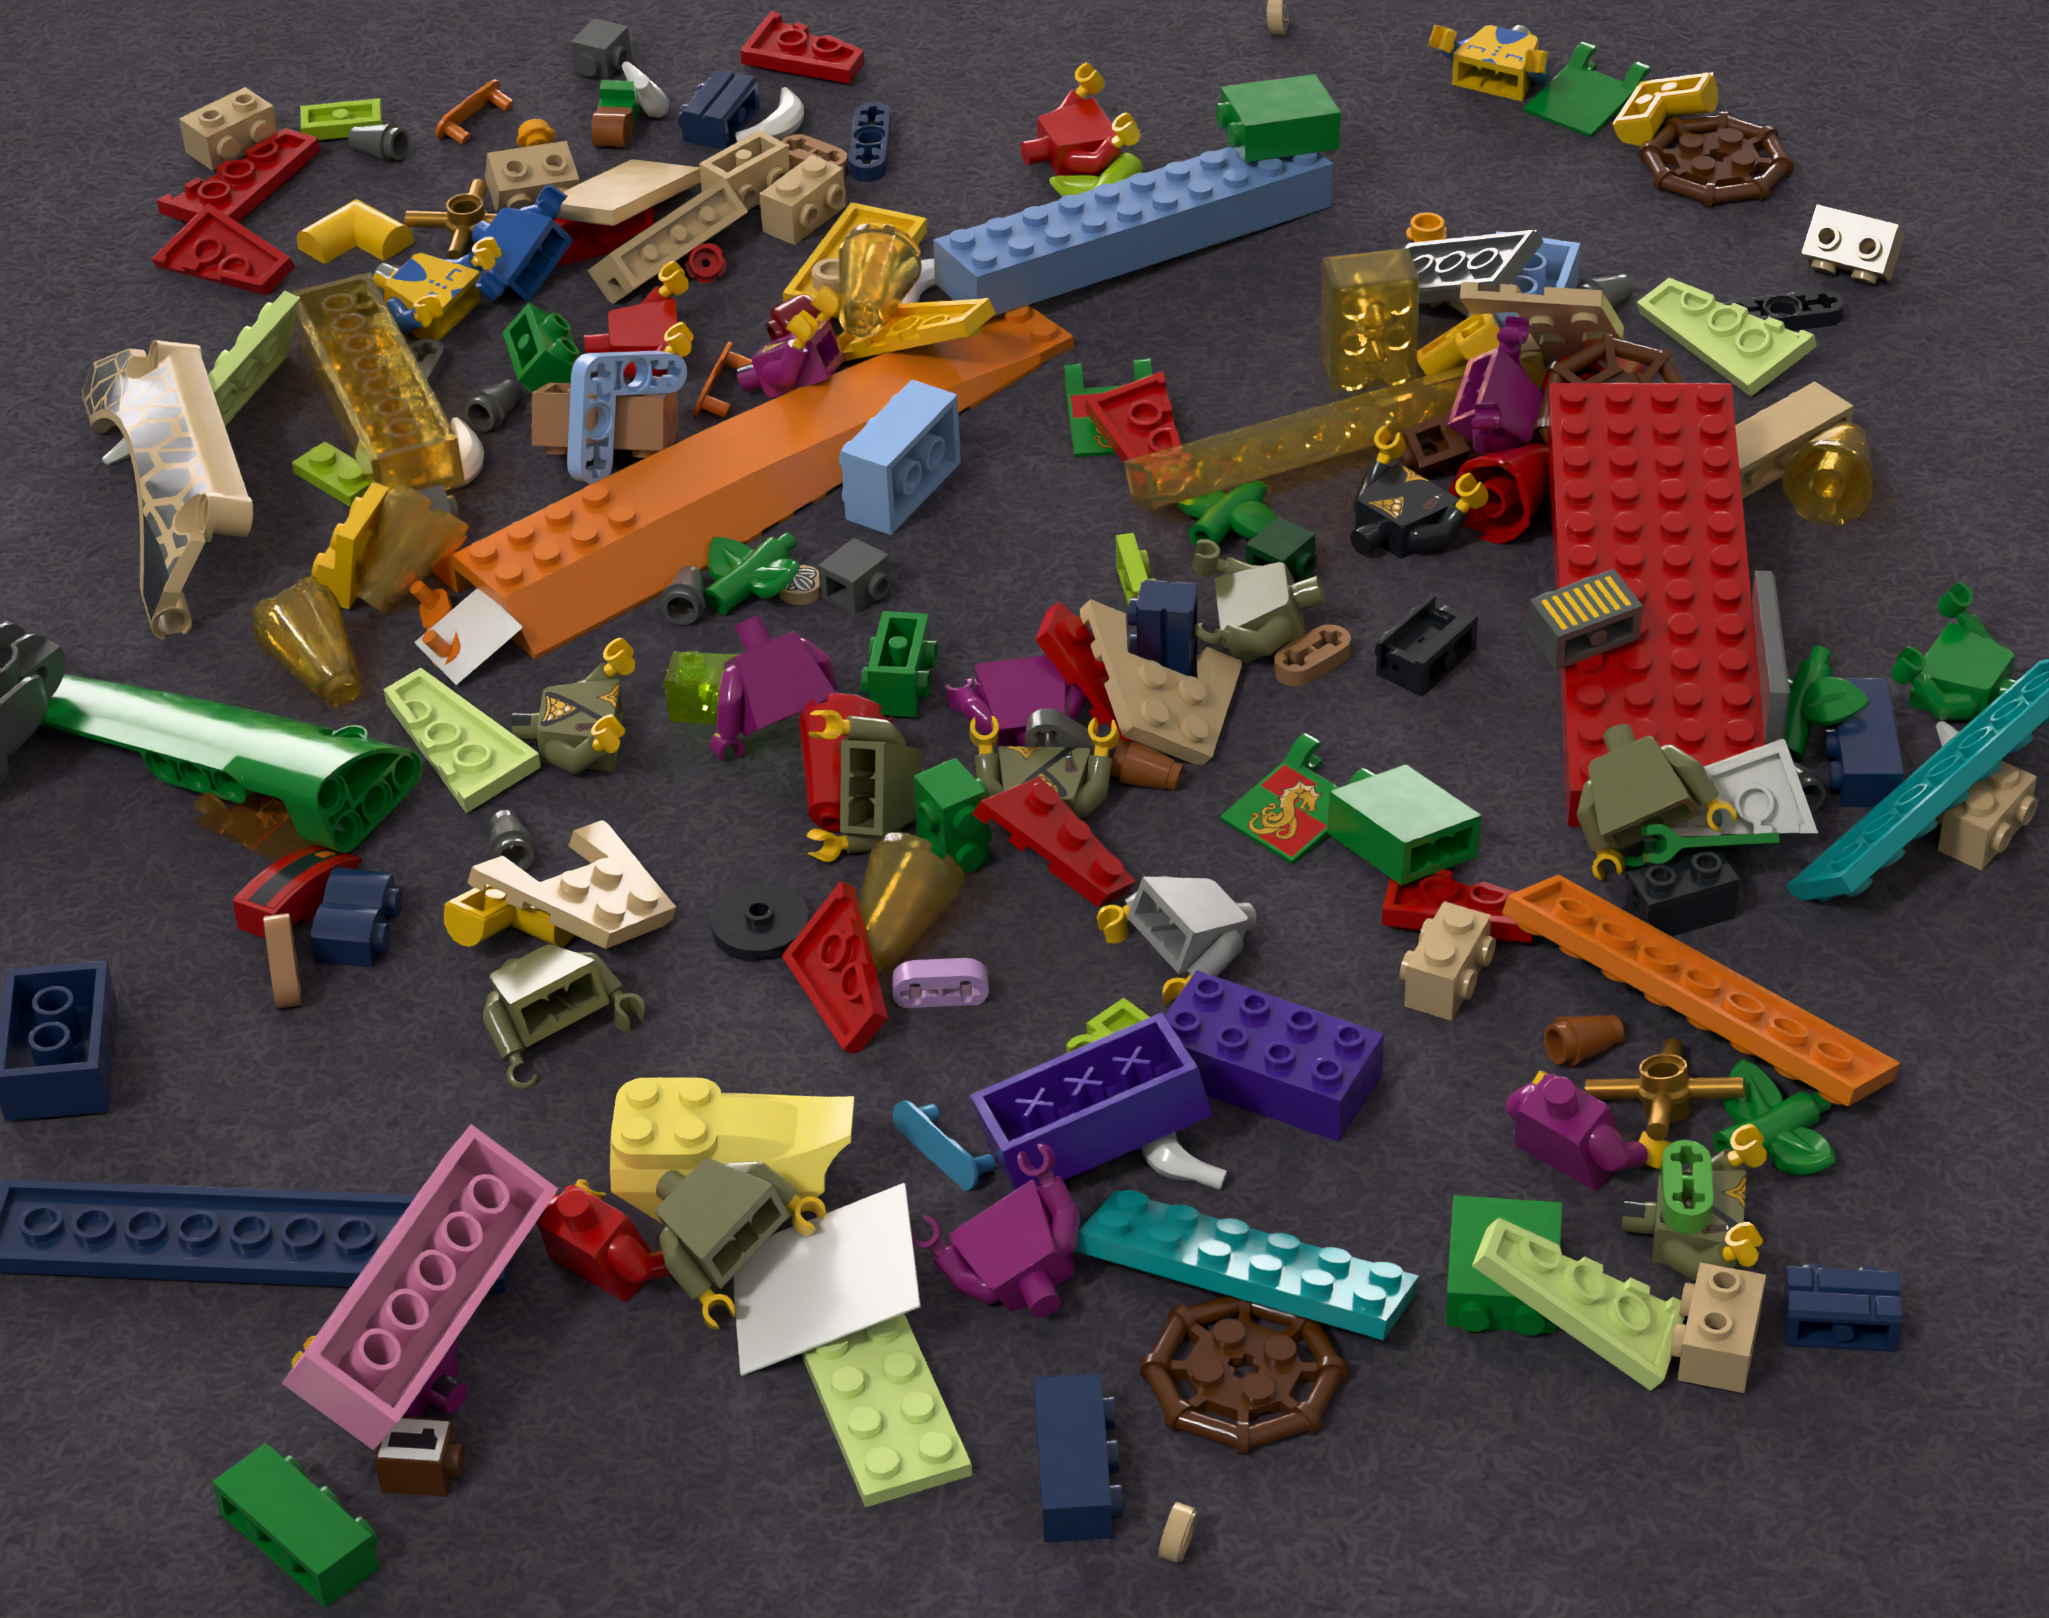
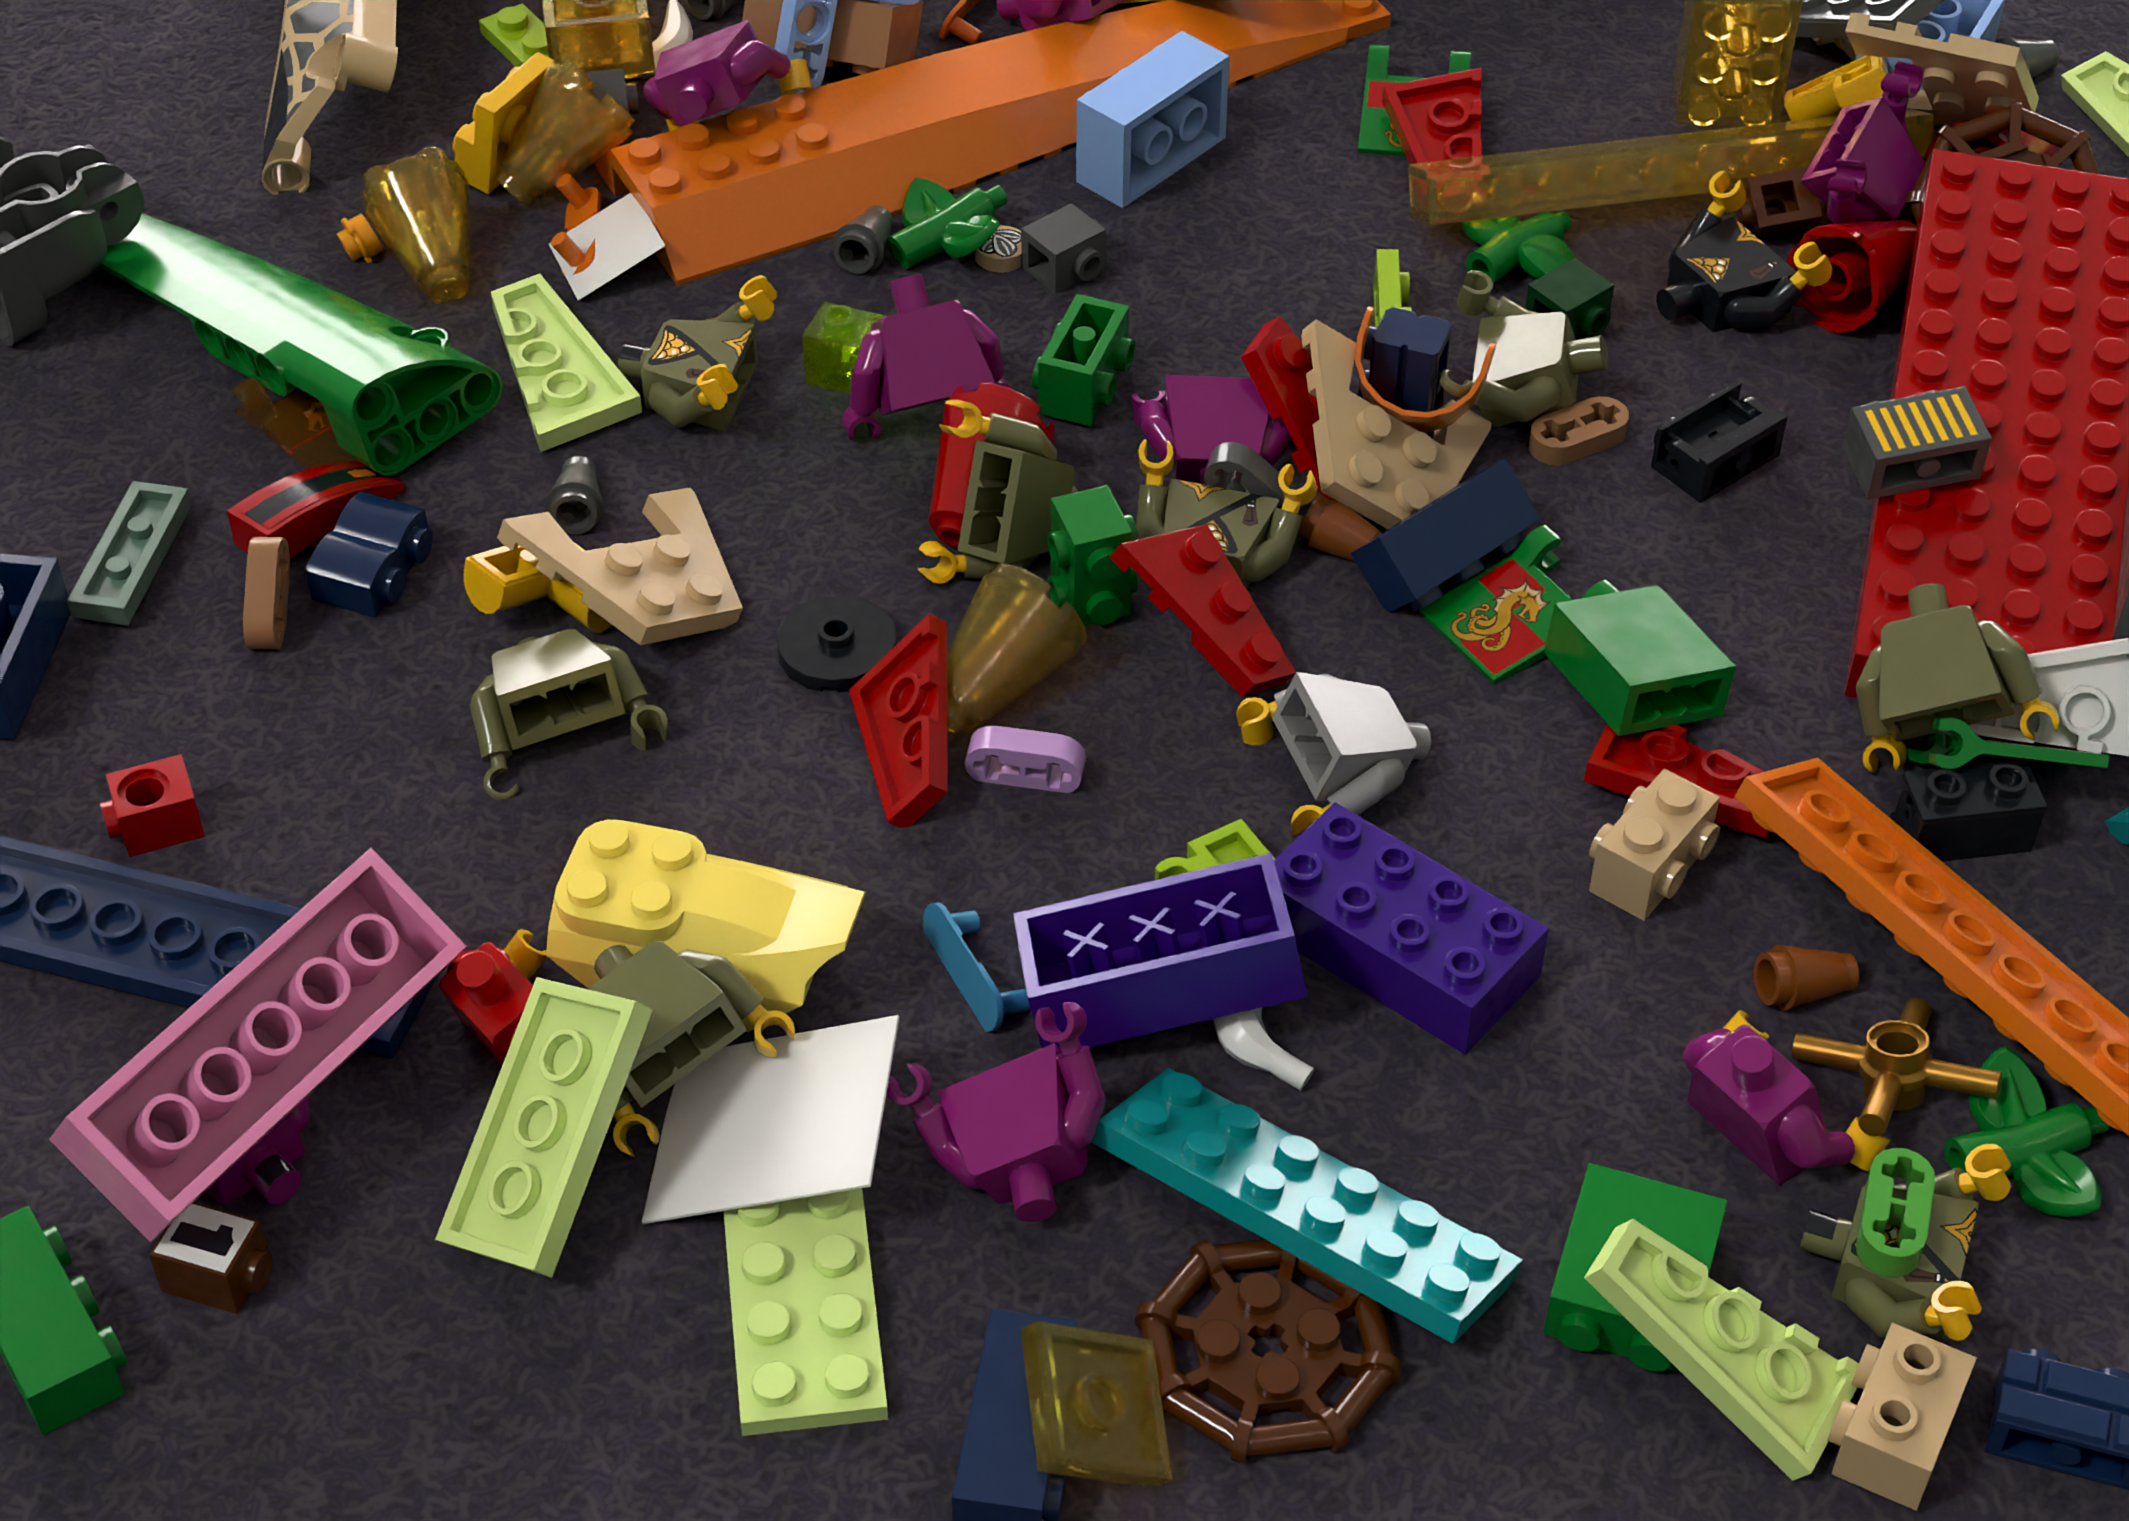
camera: 10 degrees right, 5 degrees up
(151, 950) = (129, 553): none -> sand green plate
(247, 1140) = (152, 806): none -> red brick
(253, 663) = (359, 238): none -> light orange plate
(528, 478) = (718, 74): none -> magenta torso
(655, 1310) = (544, 1126): none -> yellowish green plate
(1130, 1428) = (1095, 1405): none -> clear yellow tile
(1186, 667) = (1421, 421): none -> orange piece
(1230, 757) = (1447, 539): none -> dark blue brick

